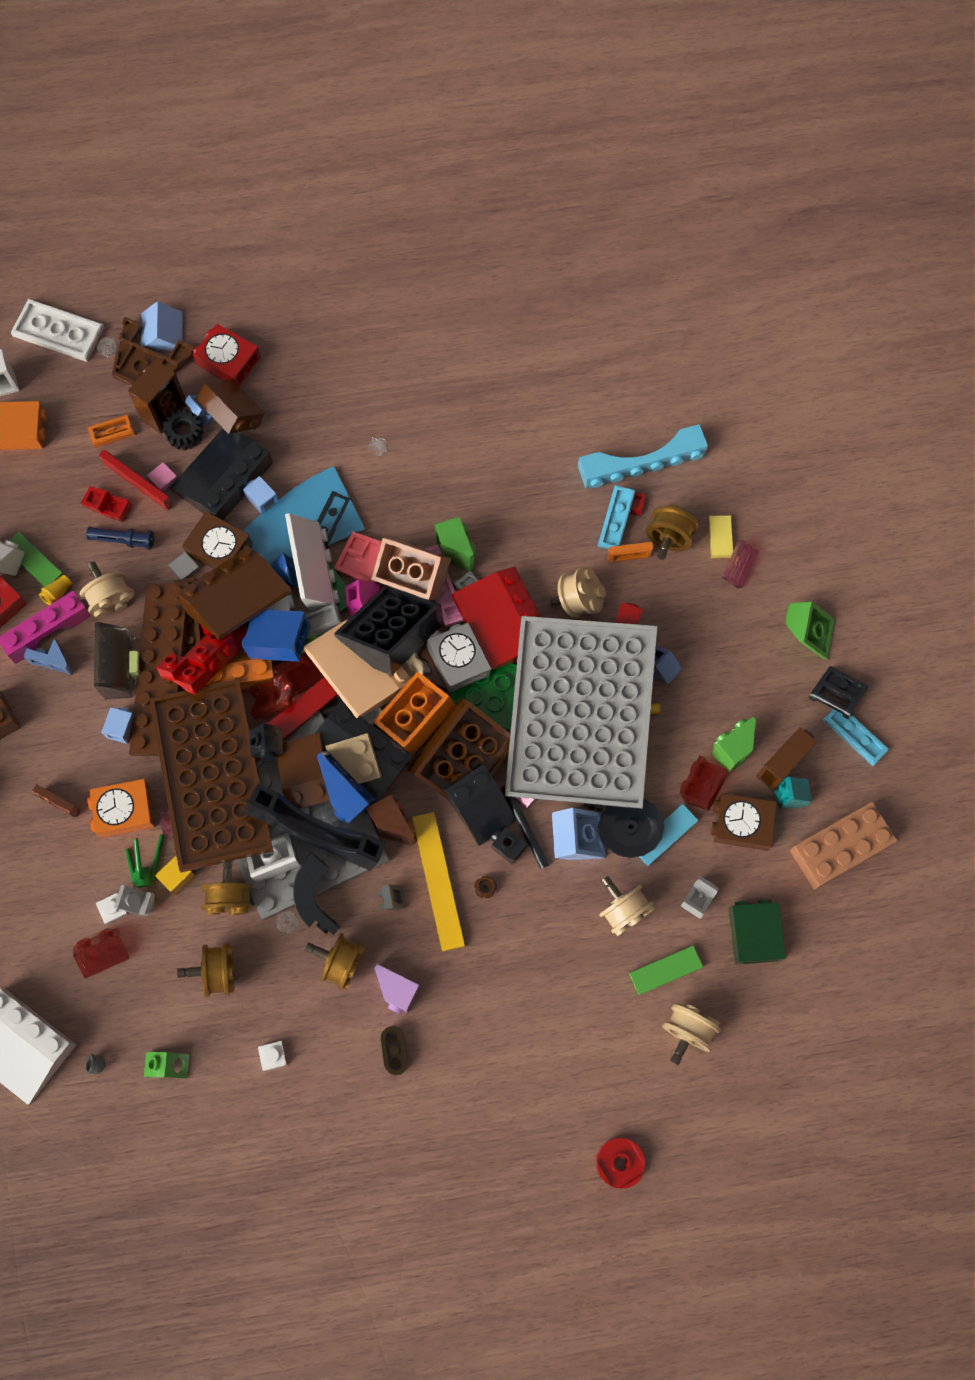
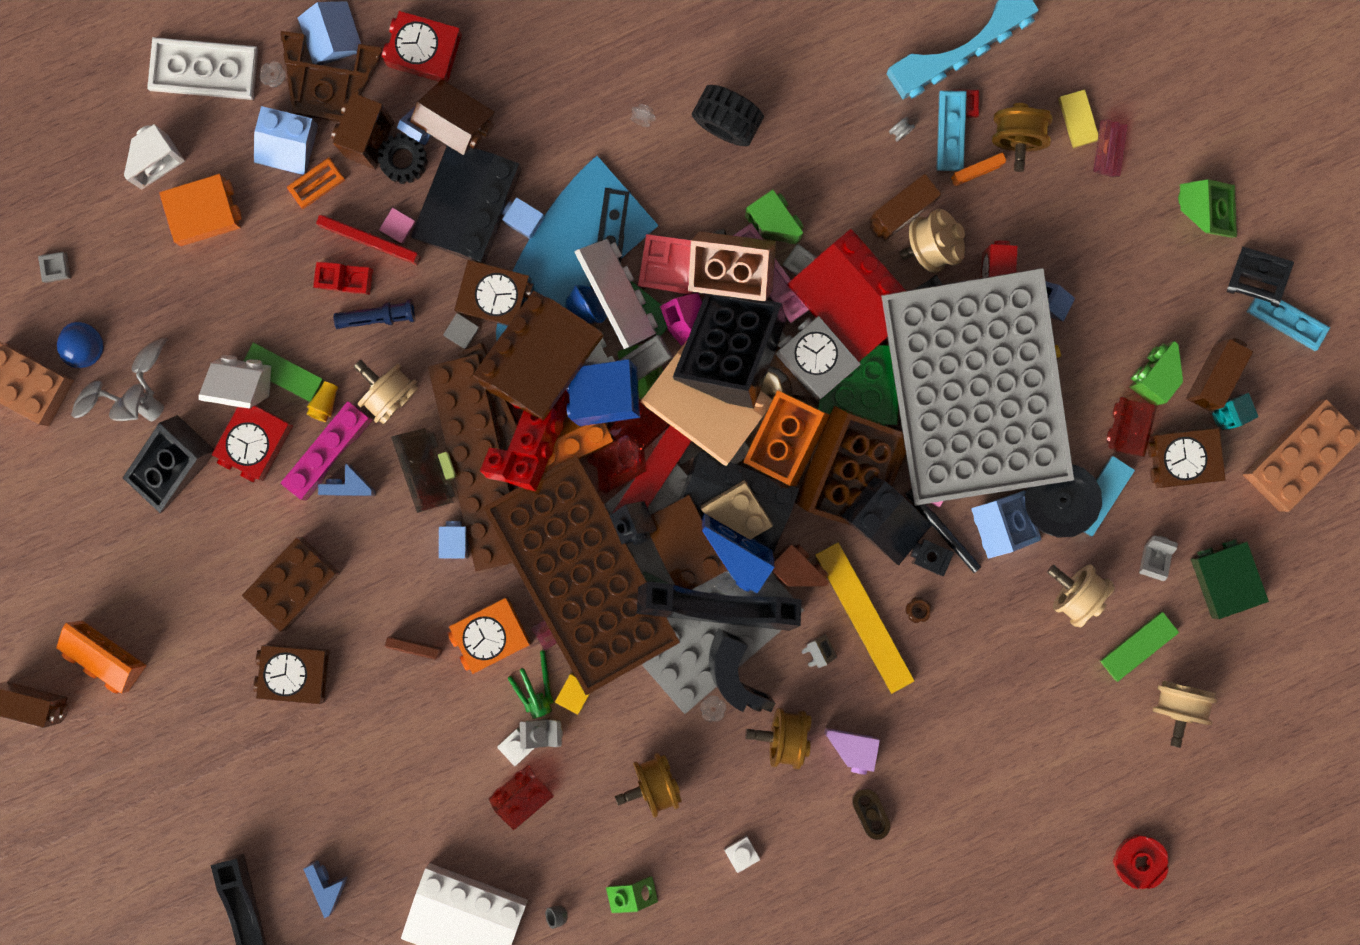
camera: 15 degrees left, 15 degrees up
(98, 392) = (284, 140): none -> light blue slope
(227, 895) = (642, 703): pearl gold wheel -> none
(275, 862) = (691, 646): white slope -> none
(442, 458) = (727, 115): none -> black tyre
(563, 558) = (904, 208): none -> reddish brown brick
(577, 507) = (902, 129): none -> light grey bush

